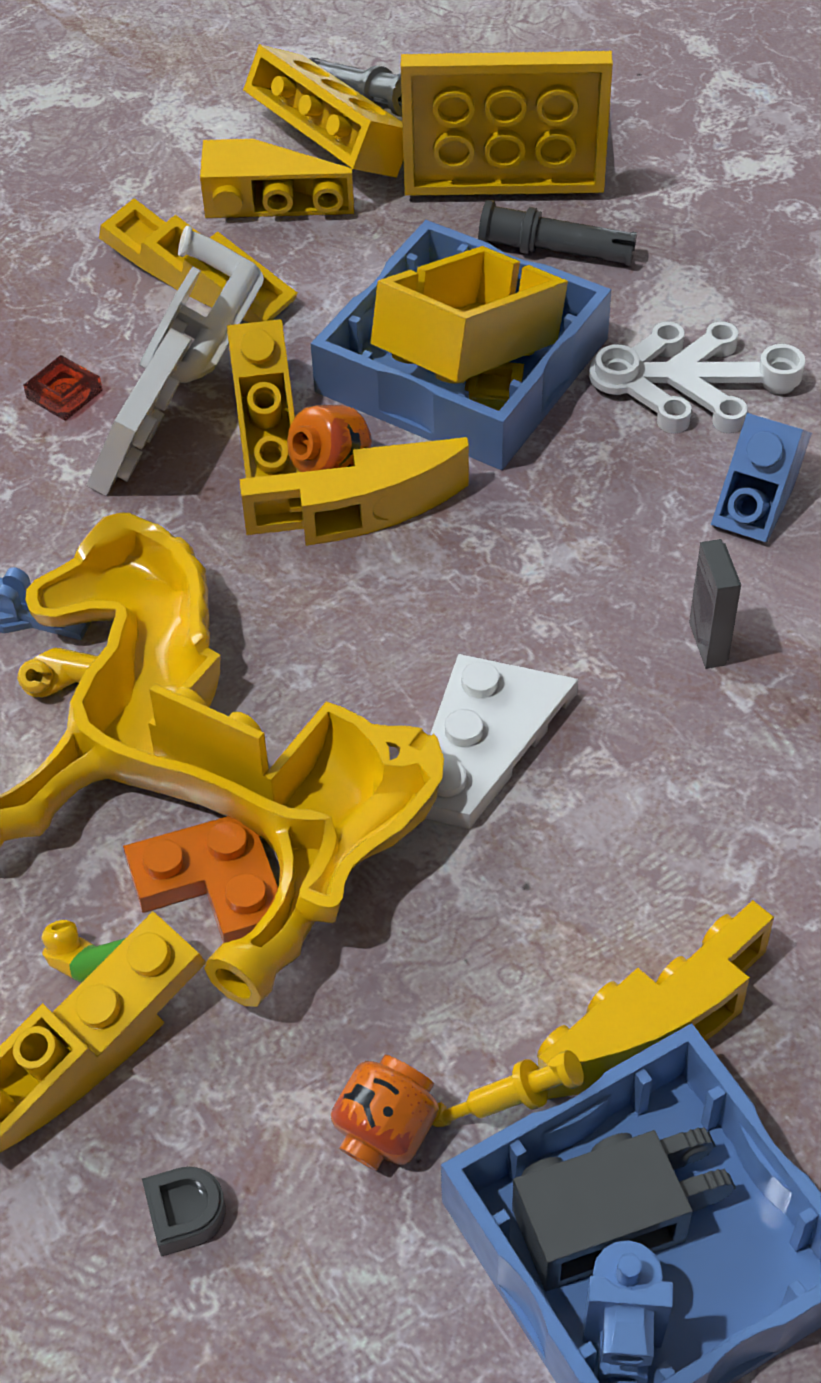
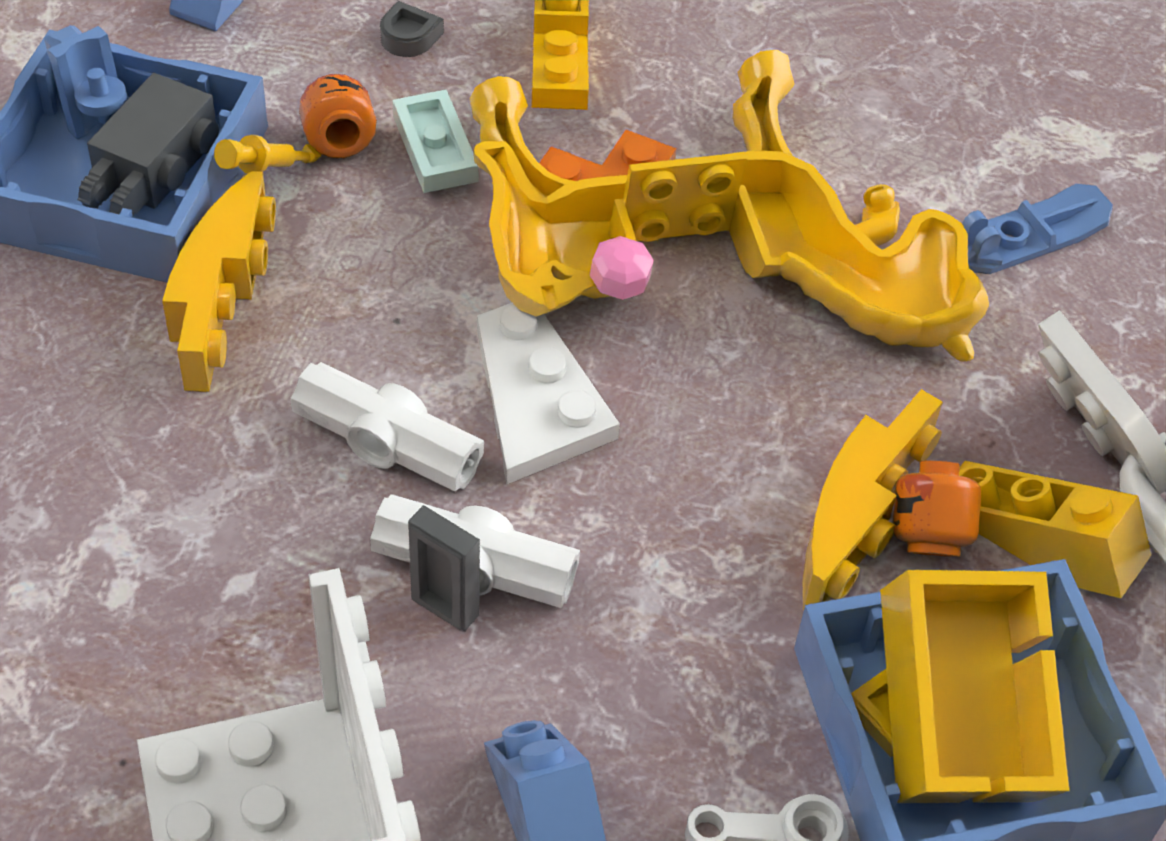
camera: 130 degrees right, 0 degrees up
(71, 953) = (619, 88): yellow arm -> none
(317, 1021) = (435, 141): none -> light aqua plate
(346, 706) = (621, 267): none -> bright pink tile
(639, 772) = (387, 426): none -> white piece
(663, 639) = (507, 557): none -> white piece

